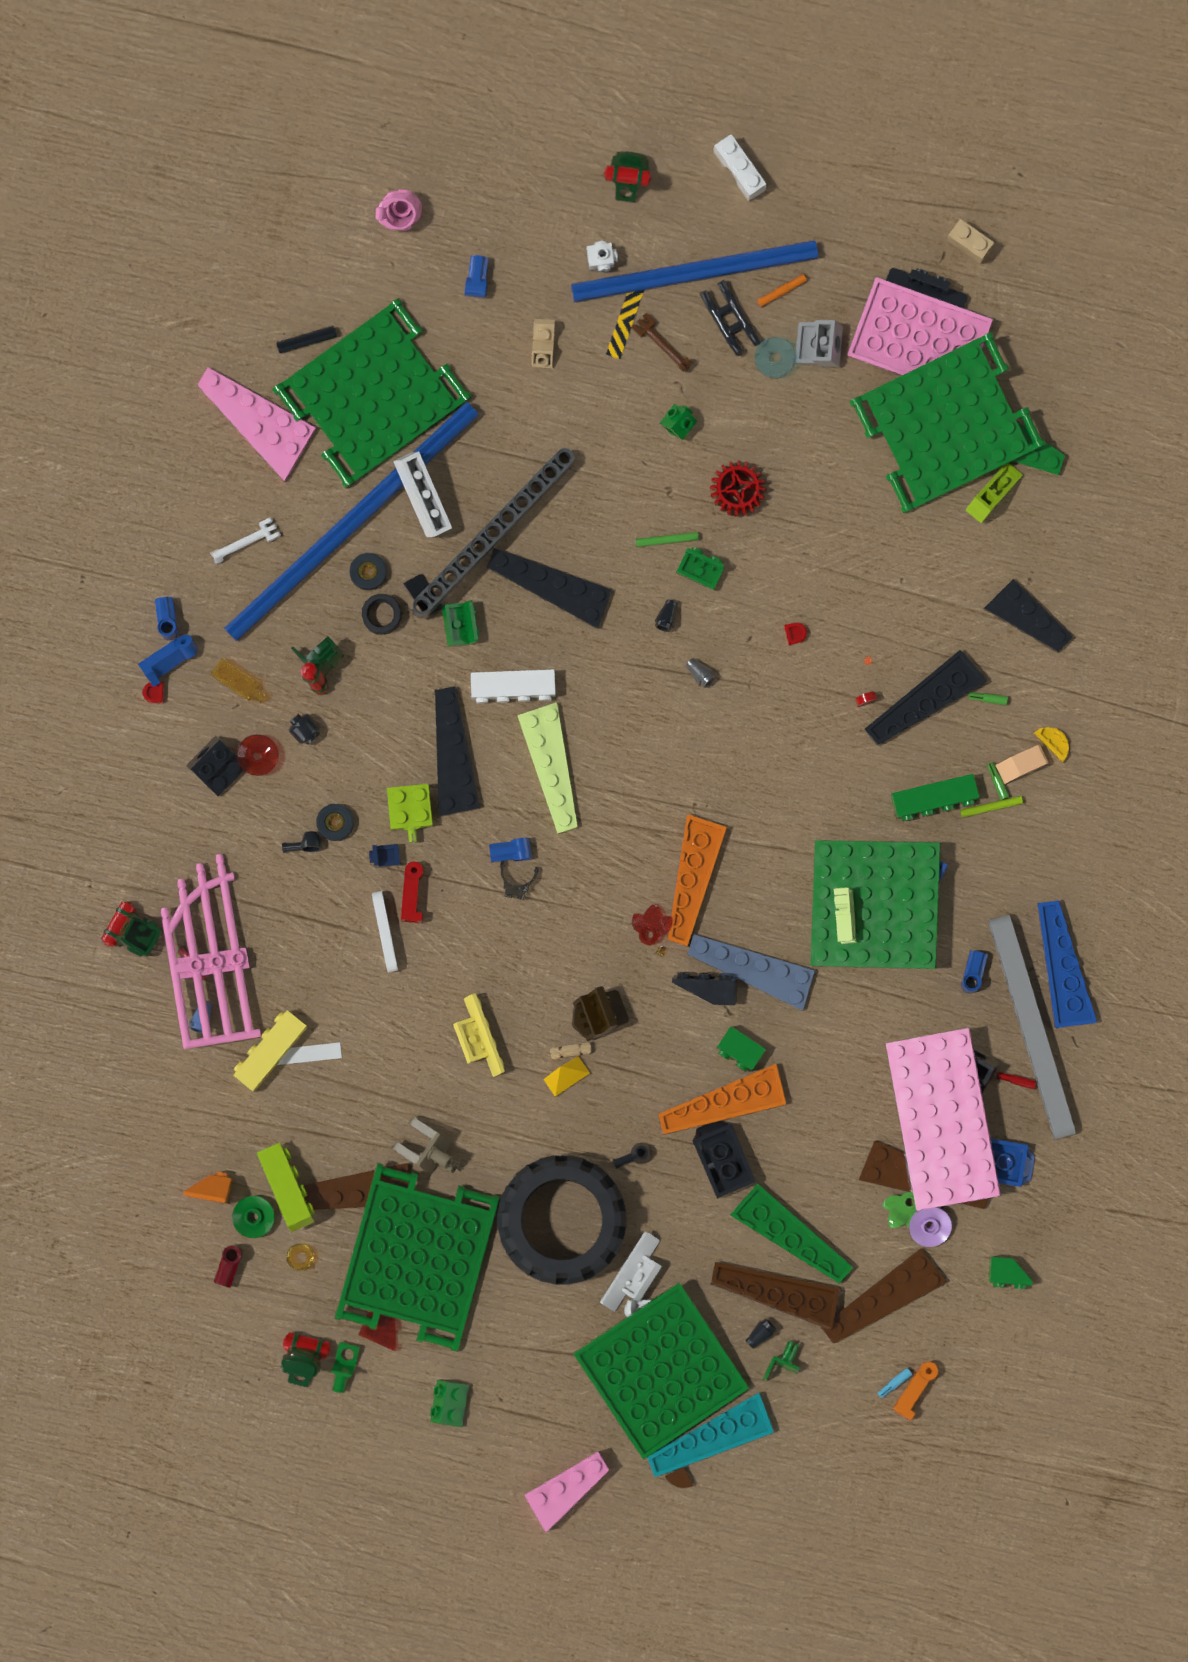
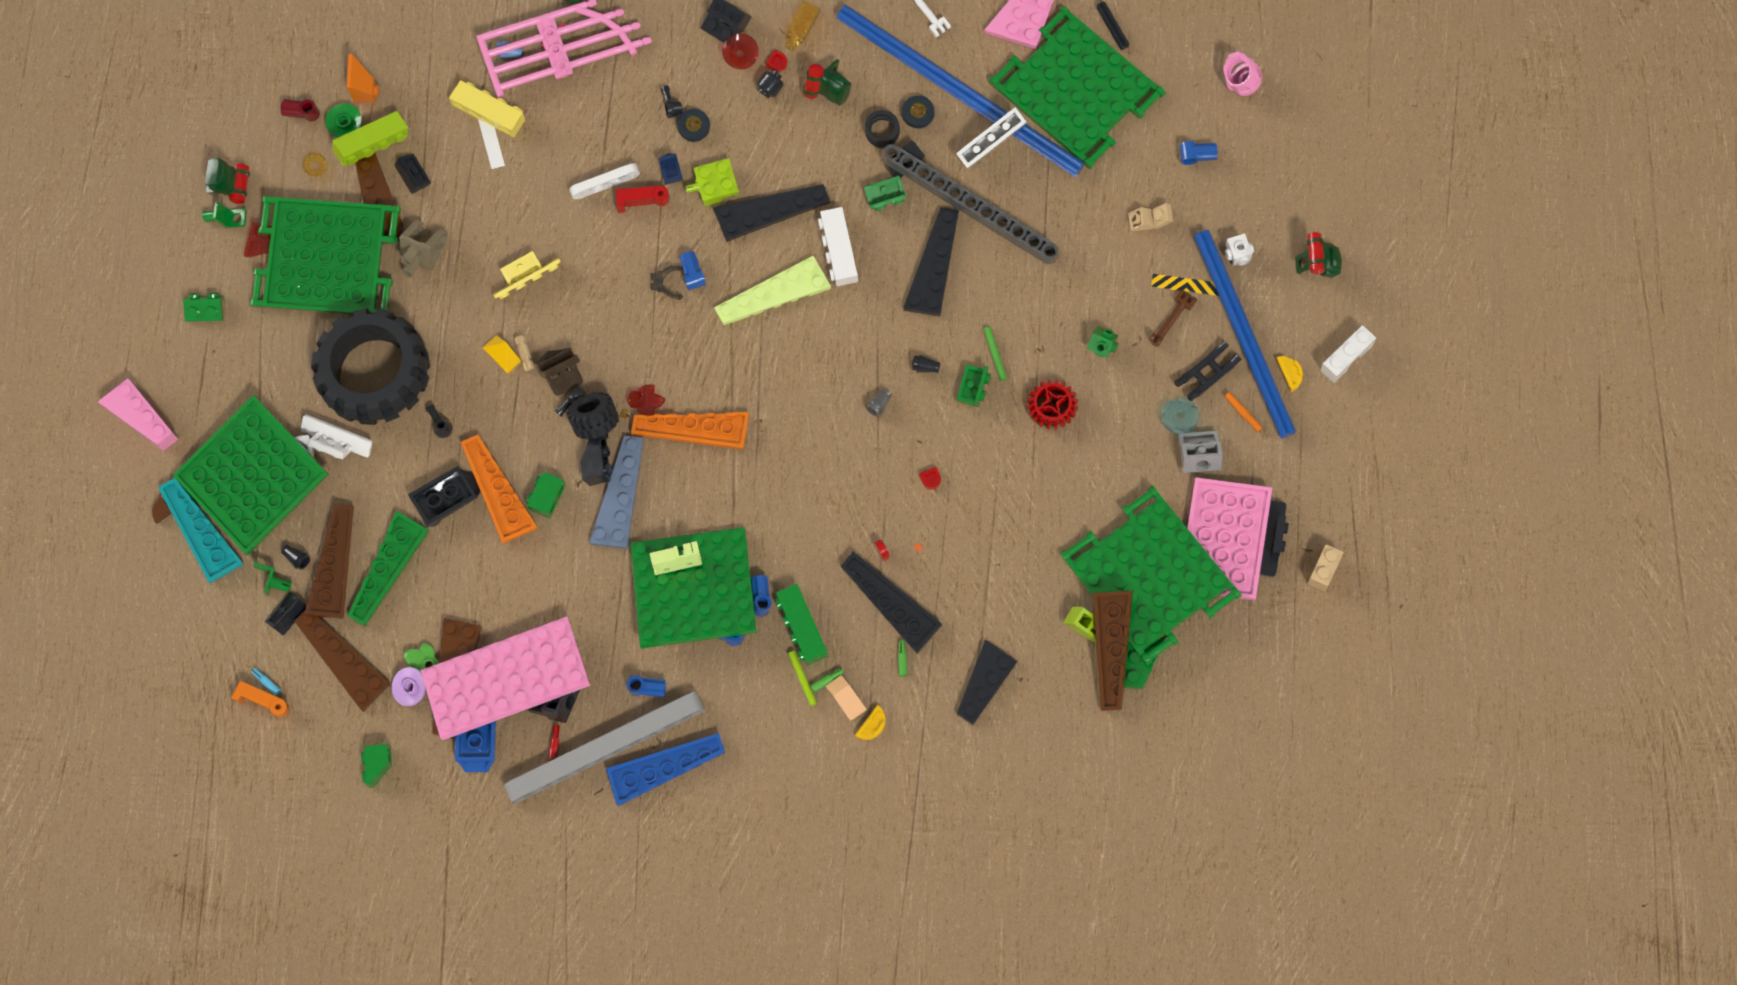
camera: 85 degrees right, 10 degrees down
(275, 716) = (777, 61): none -> red tile
(330, 1148) = (412, 173): none -> black slope
(634, 1000) = (578, 392): none -> black bar
(651, 982) = (593, 415): none -> black tyre
(745, 231) = (1291, 371): none -> yellow tile
(822, 1352) = (286, 613): none -> black slope
(893, 833) = (761, 594): none -> blue piece
(1004, 472) = (1112, 638): none -> reddish brown wing

